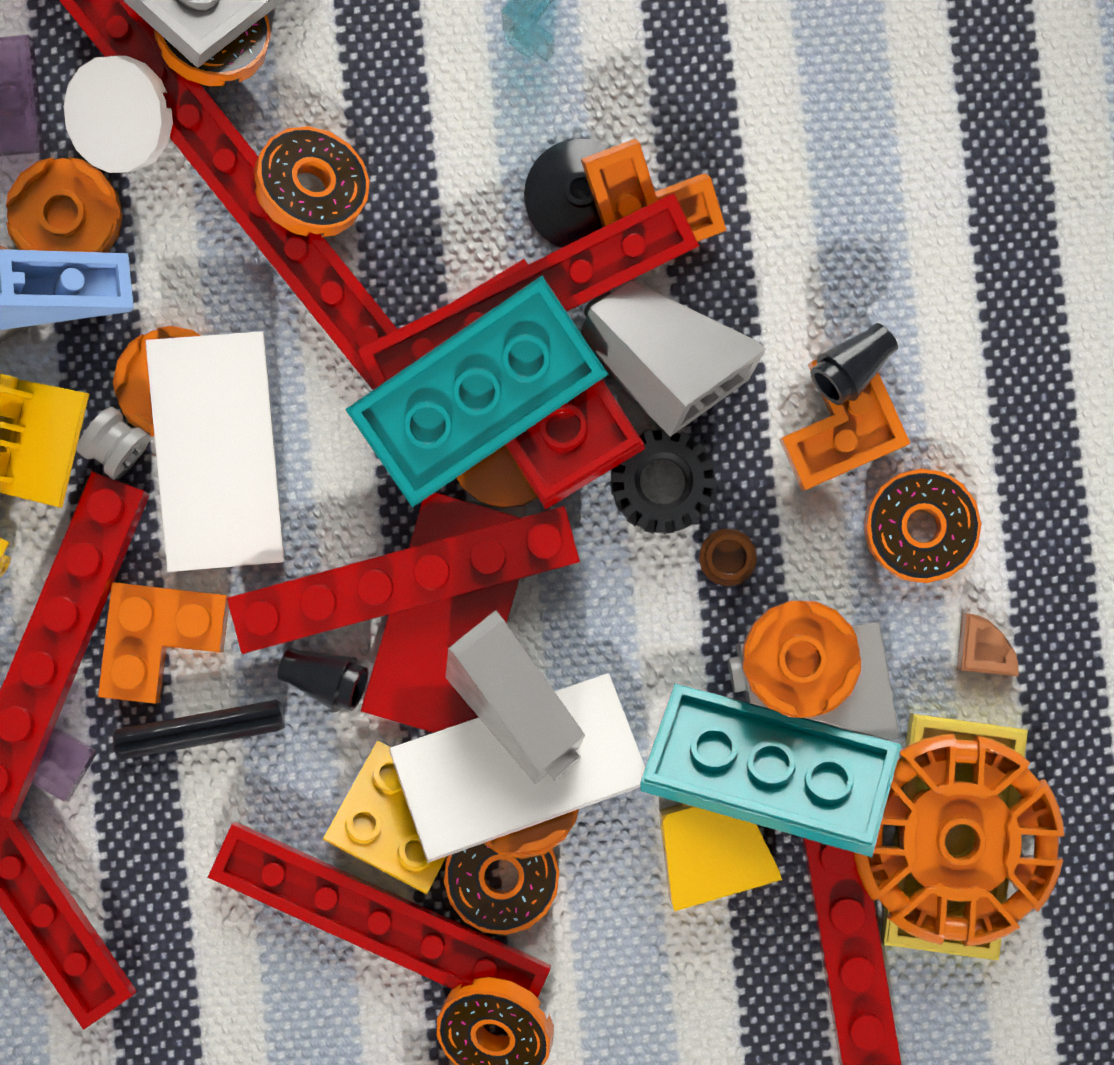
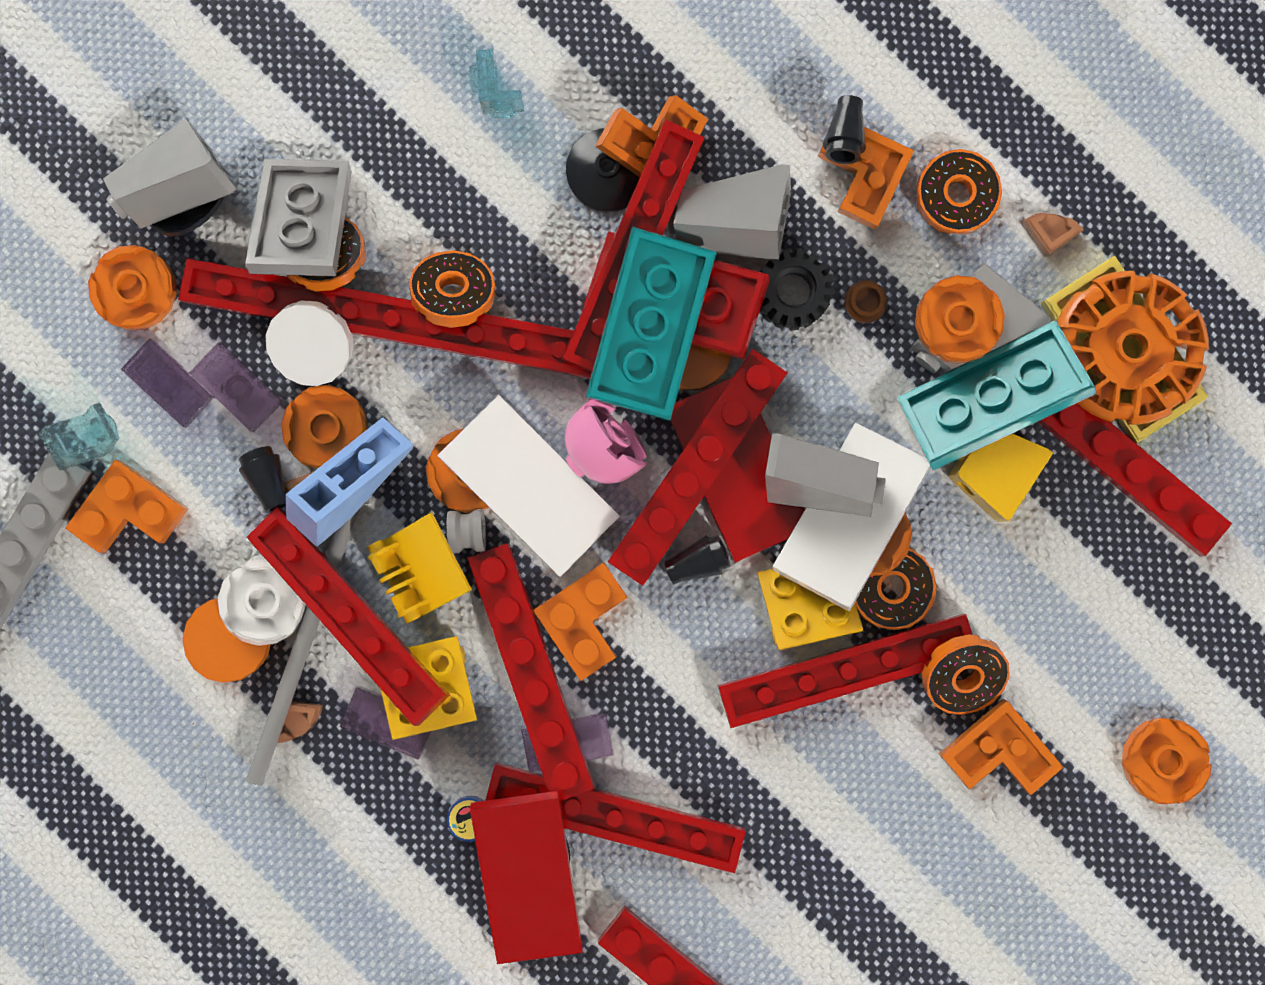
camera: 35 degrees left, 0 degrees up
(198, 729) = (652, 651): black axle -> none
(326, 474) = (601, 445): none -> bright pink cylinder

